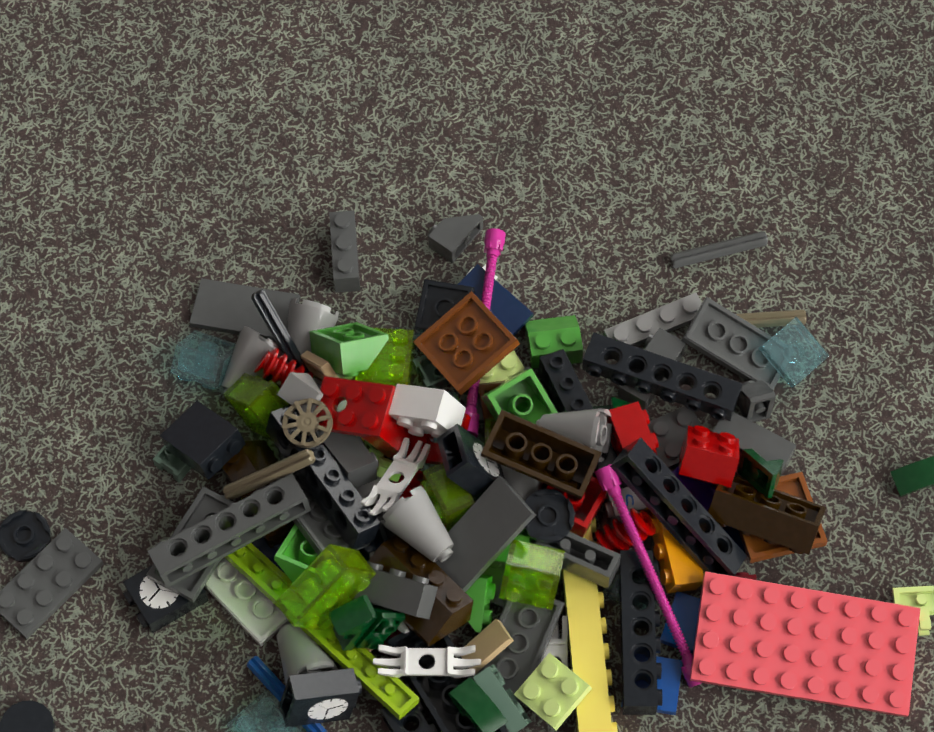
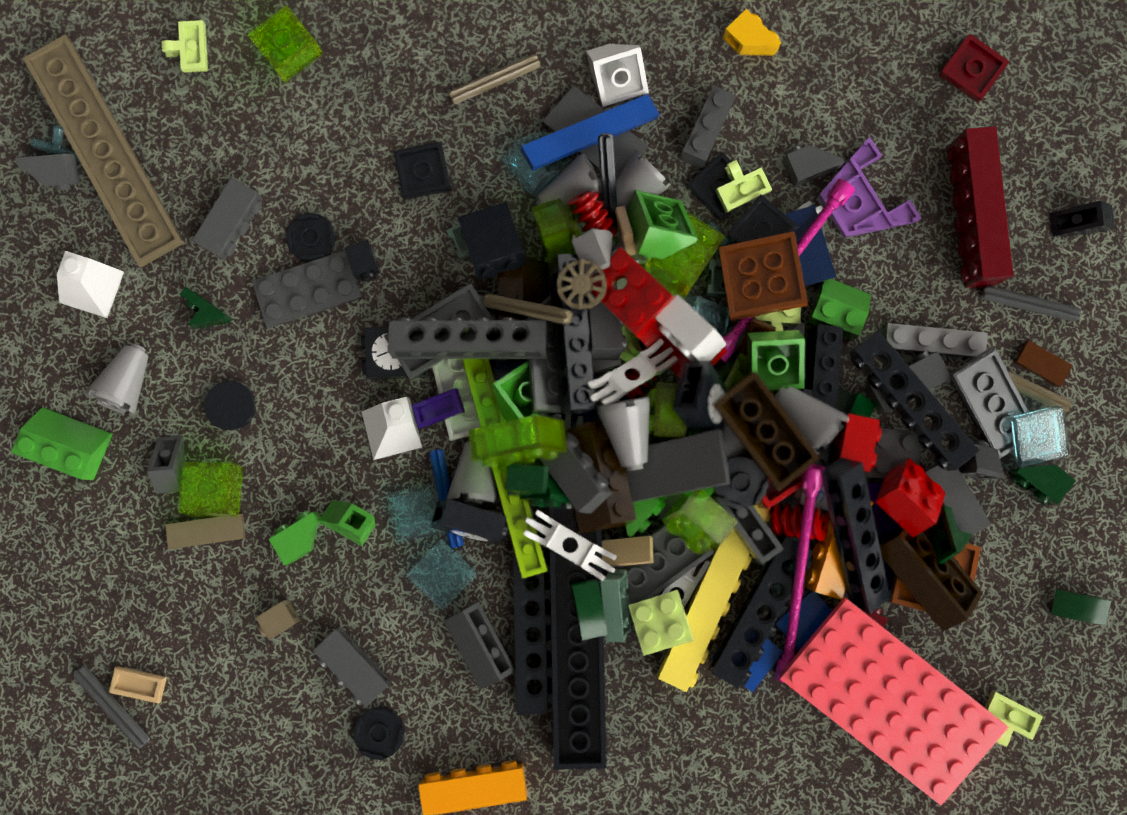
camera: 30 degrees right, 20 degrees up
(87, 526) = (363, 261): none -> black brick
(100, 422) = (422, 170): none -> black tile
(123, 311) = (494, 79): none -> dark tan axle
(197, 661) = (391, 428): none -> white slope
(233, 619) = (438, 408): none -> dark purple tile
(235, 247) = (617, 72): none -> white slope
(238, 308) = (586, 133): none -> blue tile
(339, 159) = (750, 36): none -> yellow slope
(386, 295) = (706, 183): none -> black tile
(404, 284) = (743, 187): none -> yellowish green plate
(522, 249) = (864, 210): none -> medium lavender wing
(551, 87) = (974, 68): none -> dark red plate
(624, 194) = (980, 208): none -> dark red brick
(720, 158) = (1083, 219): none -> black slope
(761, 292) = (1043, 363): none -> reddish brown tile
(820, 387) = (1046, 482): none -> dark green slope

